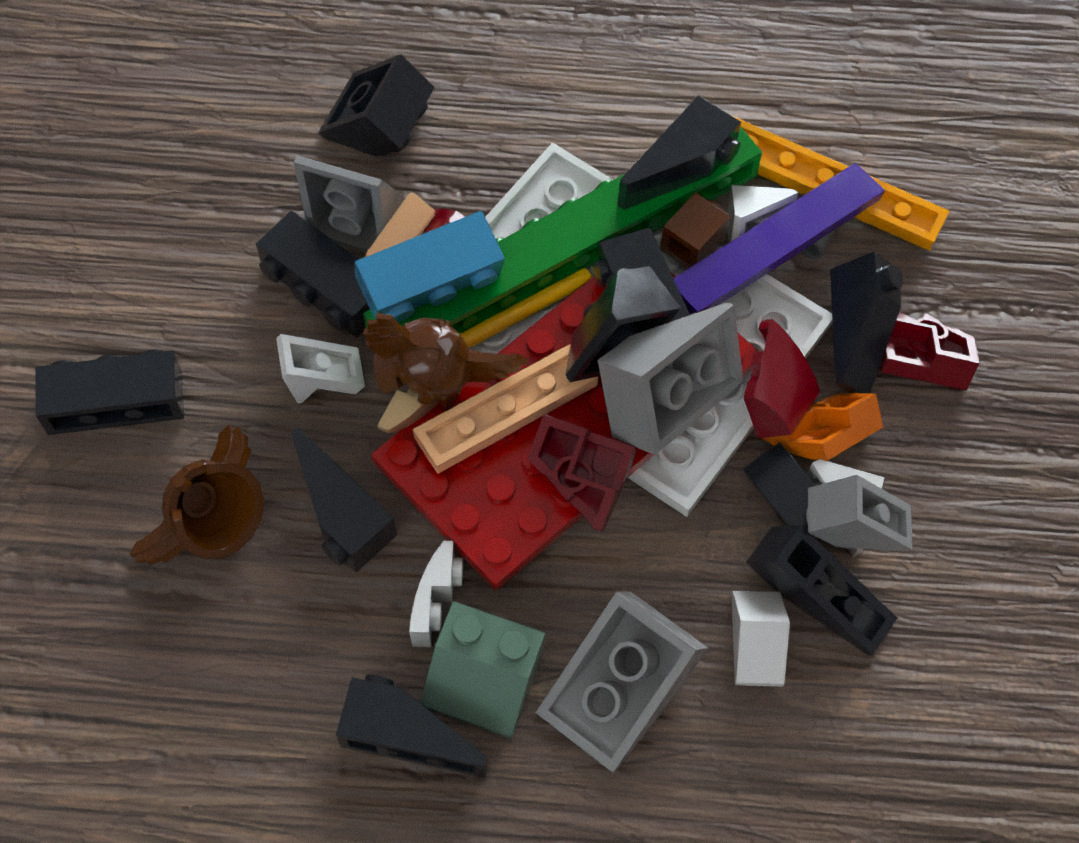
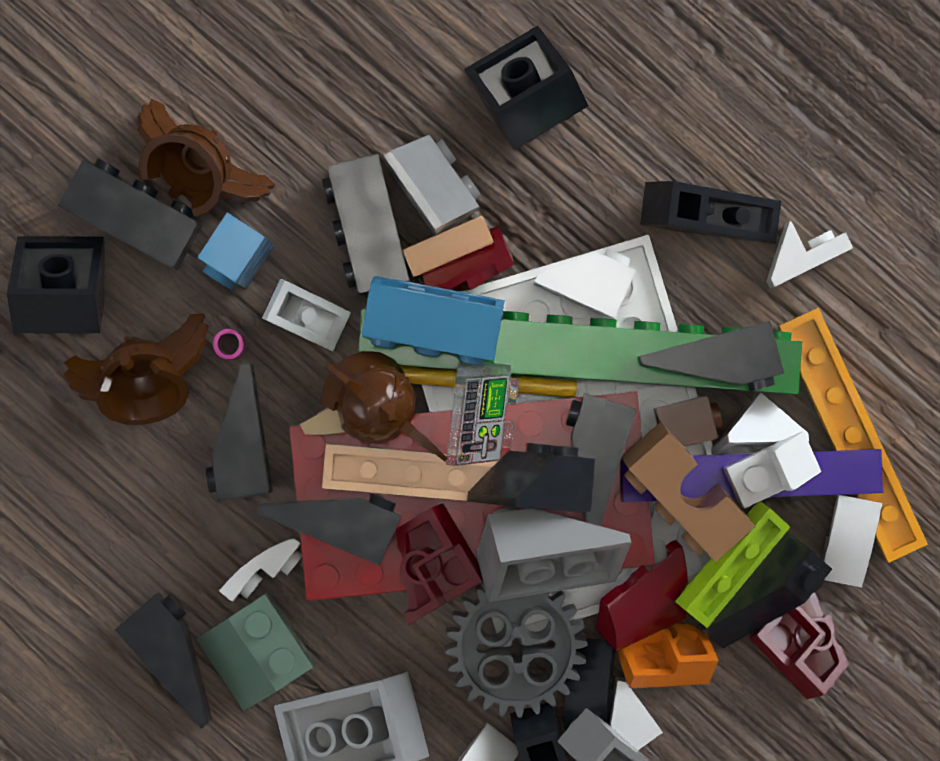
camera: 35 degrees right, 25 degrees up
(81, 490) = (57, 284): none -> black slope
(134, 311) = (193, 162): none -> reddish brown helmet
(221, 338) = (234, 253): none -> dark azure brick
(267, 425) = (217, 344): none -> dark pink hinge
(478, 483) = (347, 523): none -> black slope
(522, 310) = (479, 413): none -> slope
(532, 189) = (591, 281): none -> white slope
(576, 103) = (710, 211): none -> black slope
(676, 89) = (793, 259): none -> white slope
(707, 258) = (710, 521): none -> medium nougat arch
(733, 525) = (516, 685): none -> dark grey gear
(789, 219) = (772, 470): none -> white slope
(821, 312) = (722, 579): none -> lime plate
(890, 236) = (851, 539): none -> white slope

